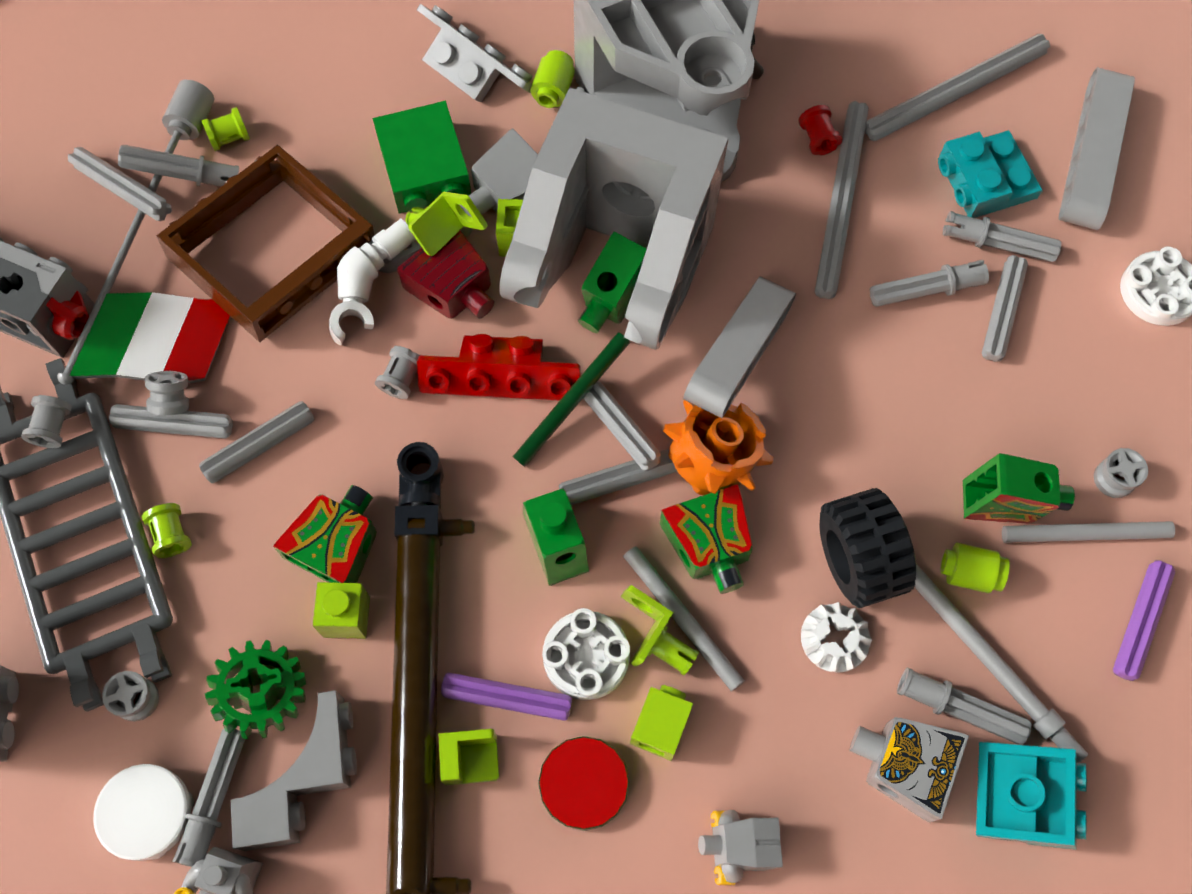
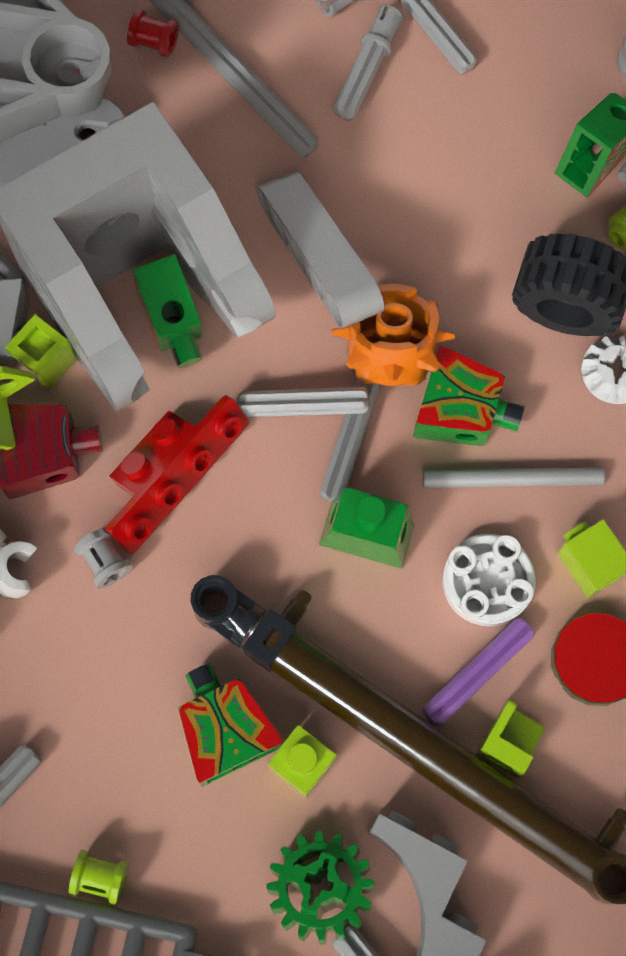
camera: 55 degrees left, 5 degrees up
(256, 442) = (69, 736): light grey axle -> none
(571, 399) = (250, 425): dark green bar -> none
(658, 640) = (517, 510): lime bracket -> none

